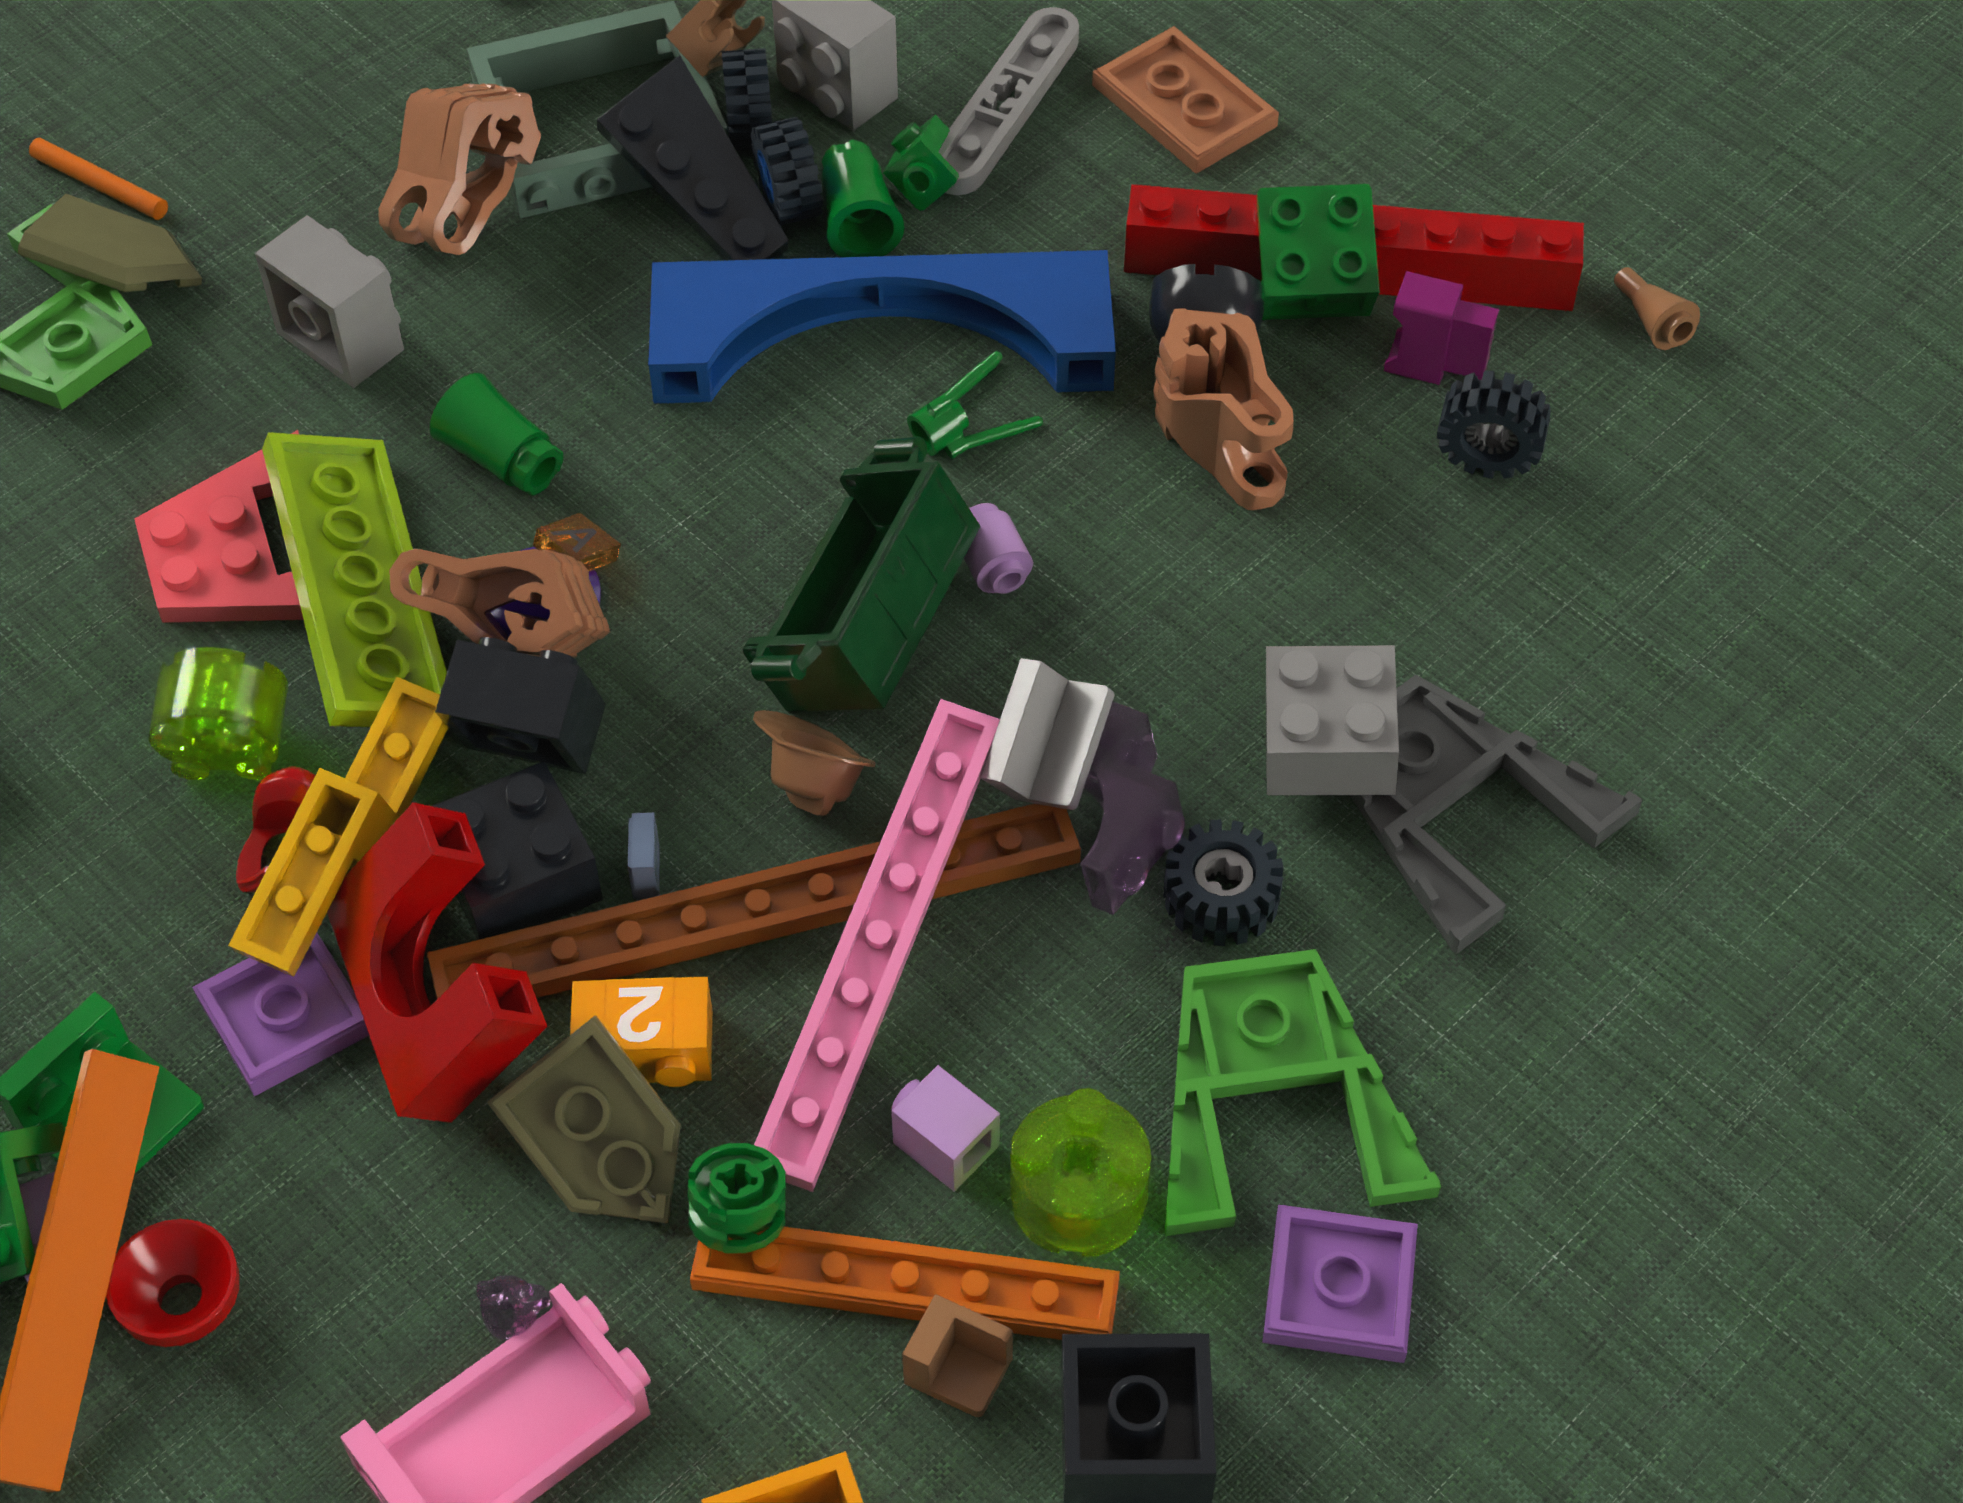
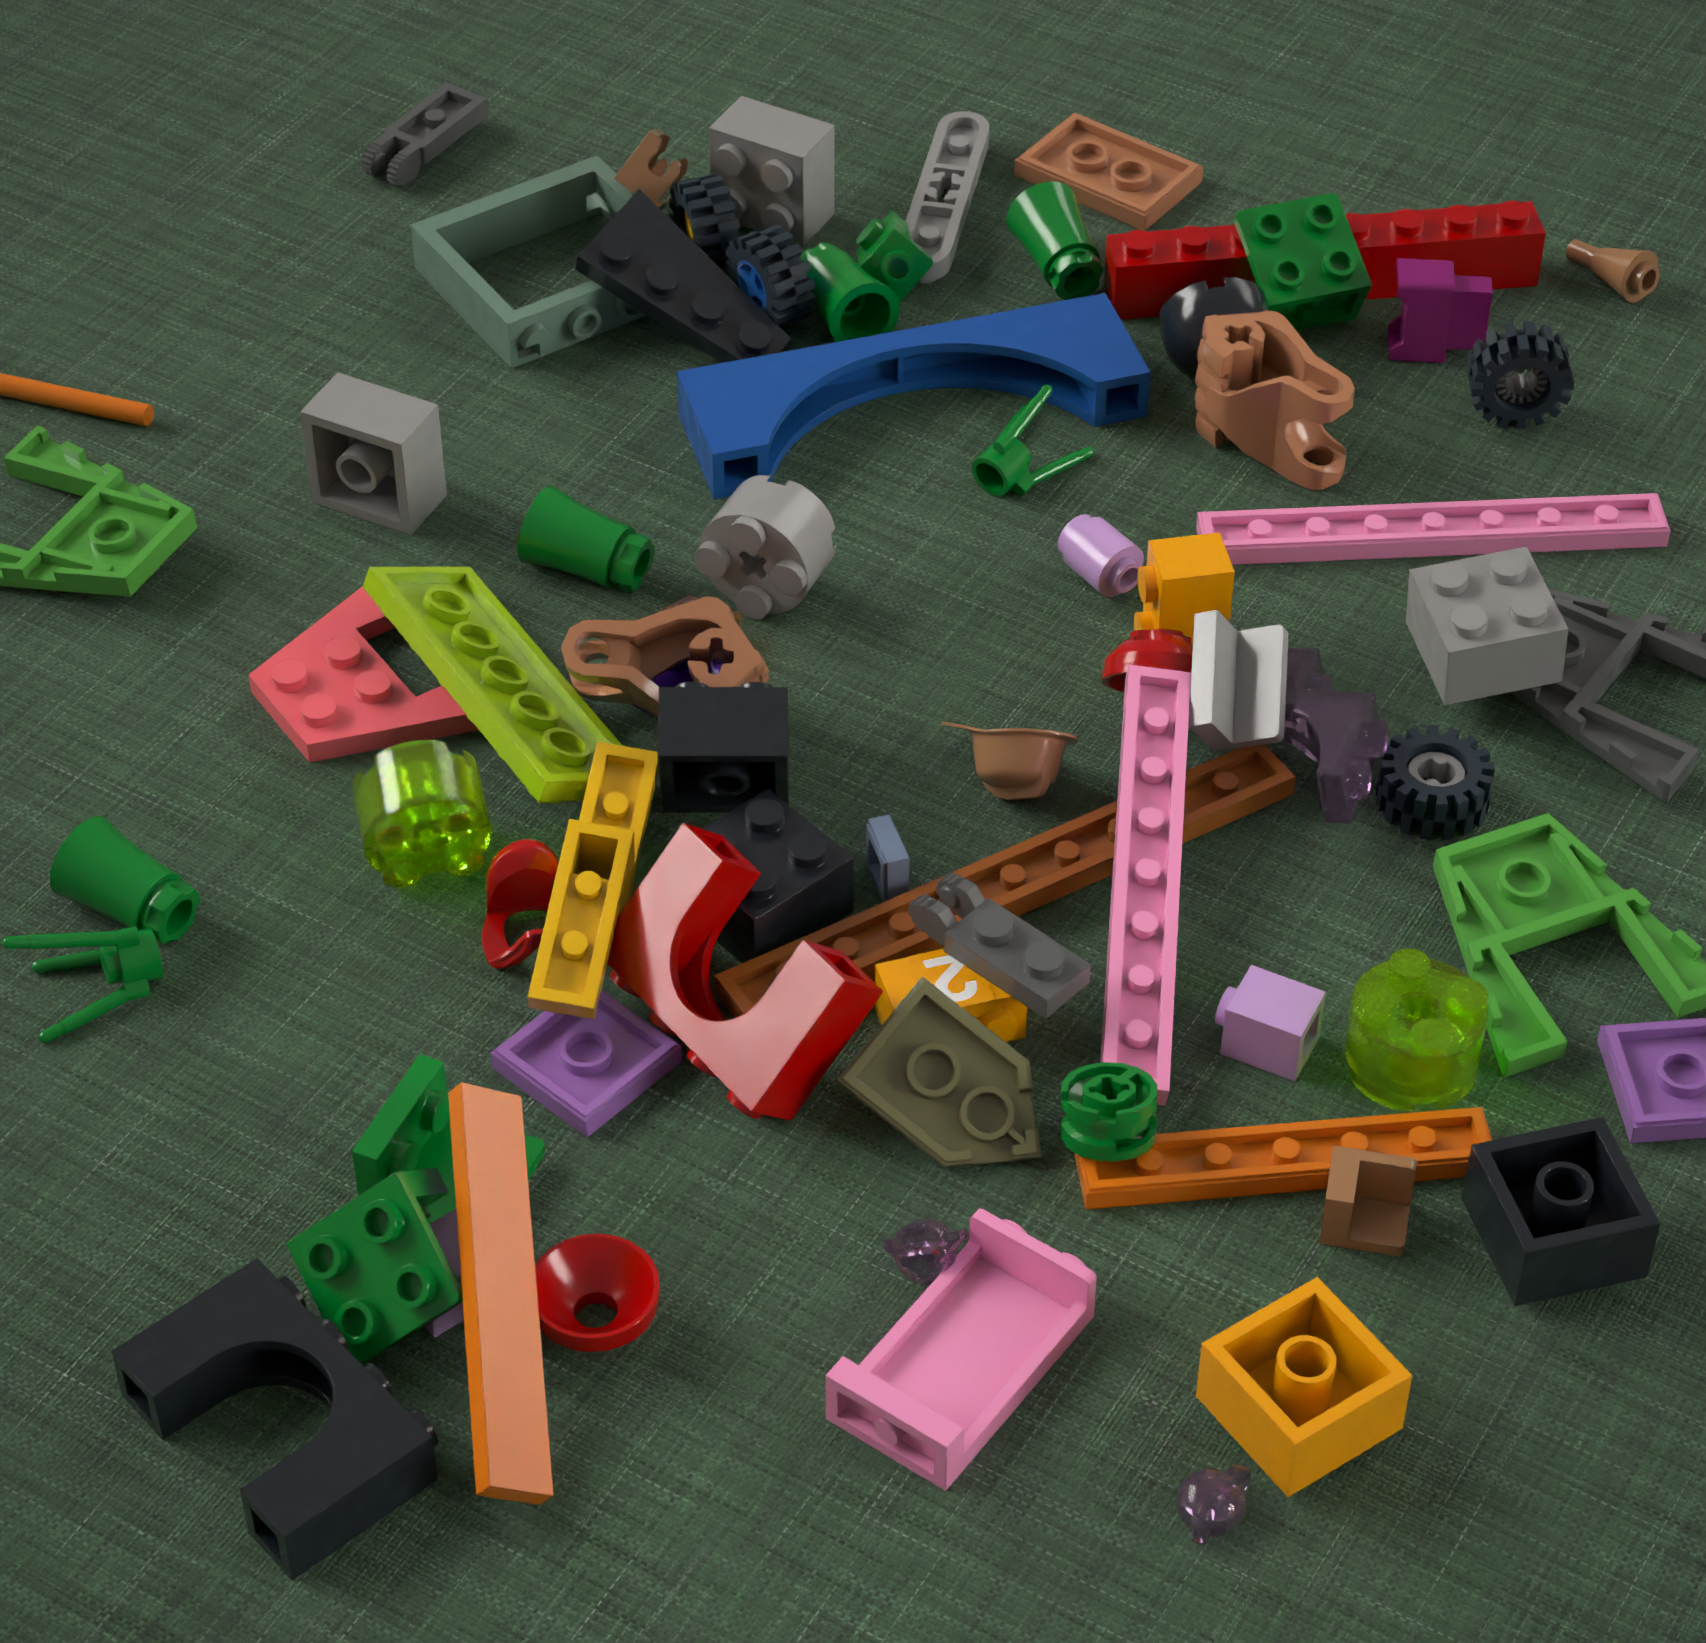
camera: 15 degrees left, 10 degrees down
(106, 247) = (120, 449): olive tile -> none
(434, 160) = (454, 313): nougat piece -> none
(659, 480) = (767, 546): none -> light grey brick
(697, 995) = (1000, 946): none -> dark grey hinge
(868, 585) = (1007, 594): dark green container -> none
(975, 686) = (1147, 648): none -> red piece
(1040, 618) = (1184, 579): none -> light orange brick
(1091, 169) = (1055, 237): none -> green plant
(1347, 581) = (1439, 528): none -> bright pink tile

